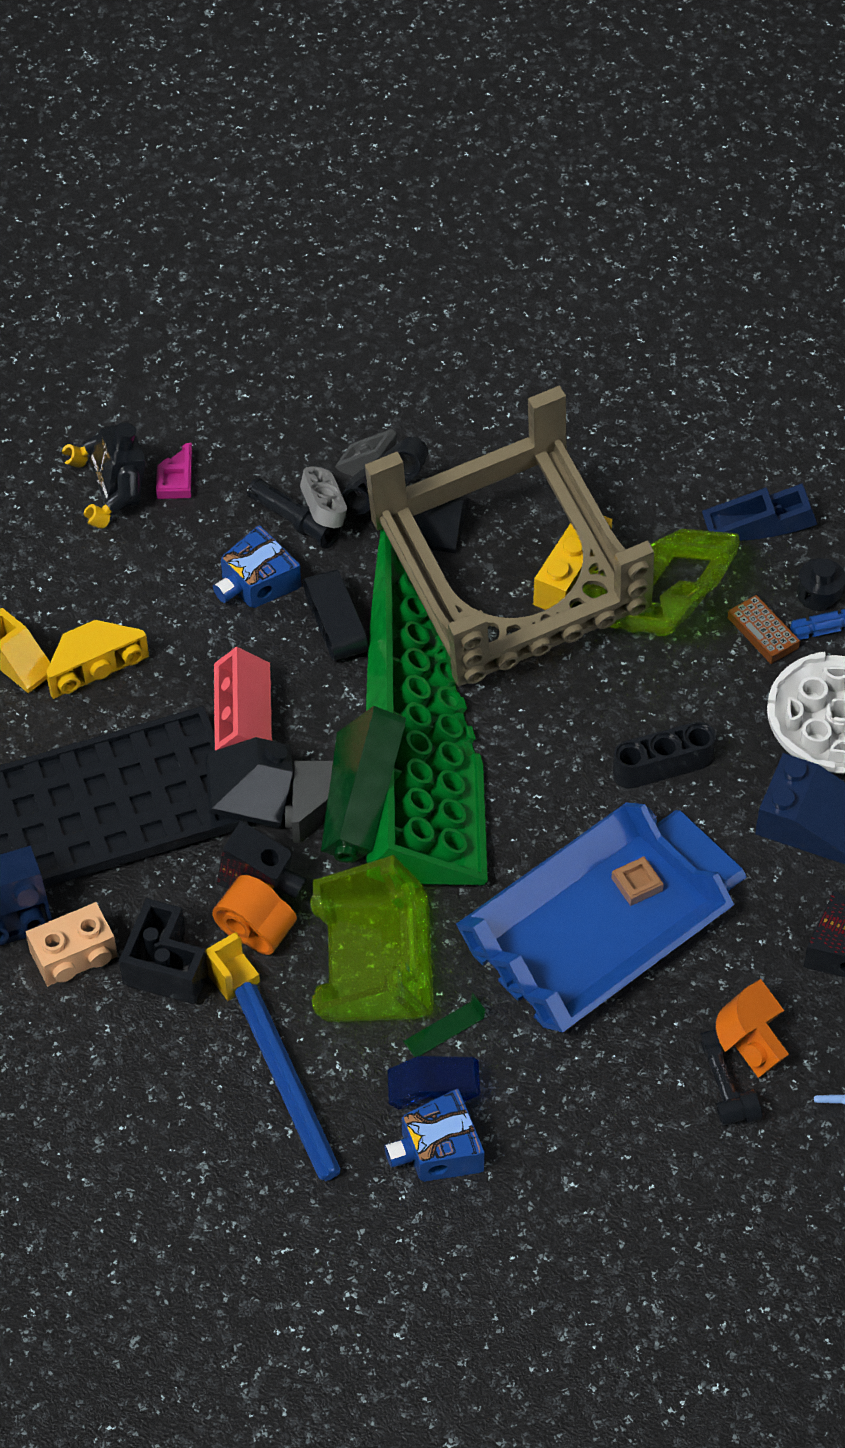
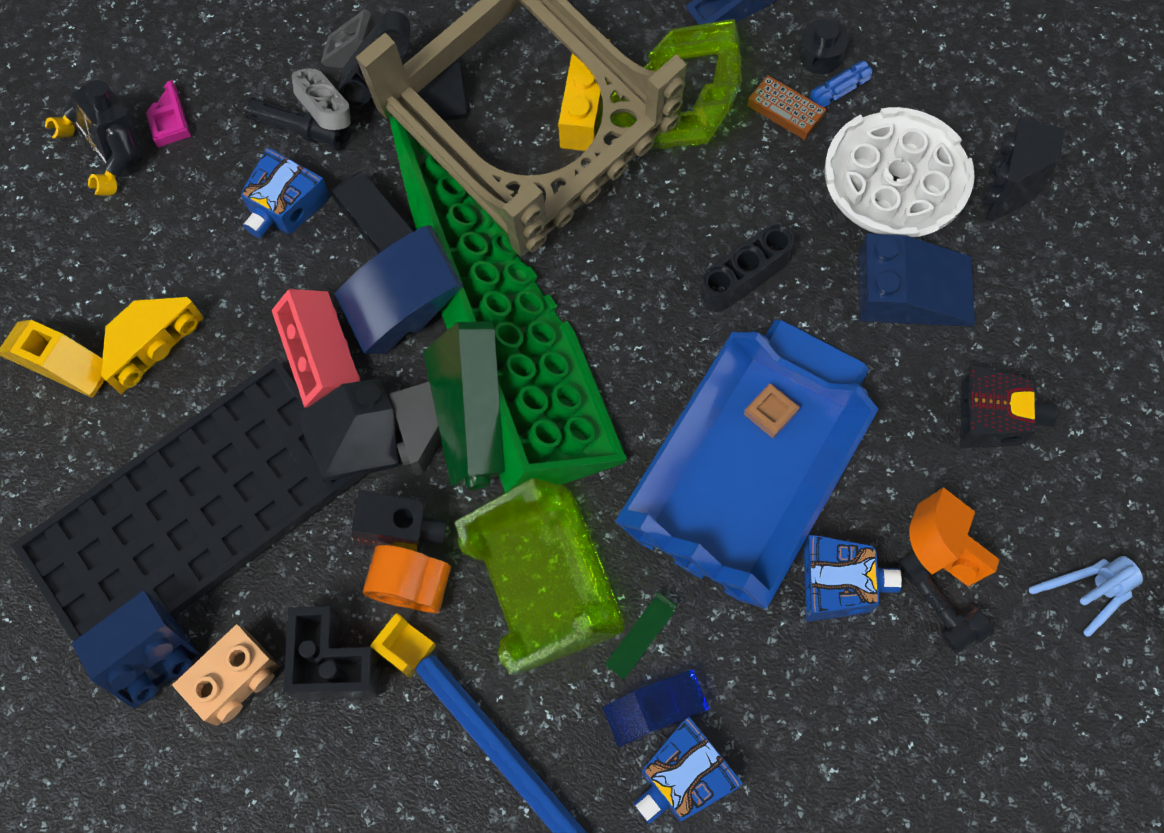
camera: 15 degrees left, 15 degrees up
(333, 679) = (398, 291): none -> dark blue slope
(643, 1033) = (843, 578): none -> torso

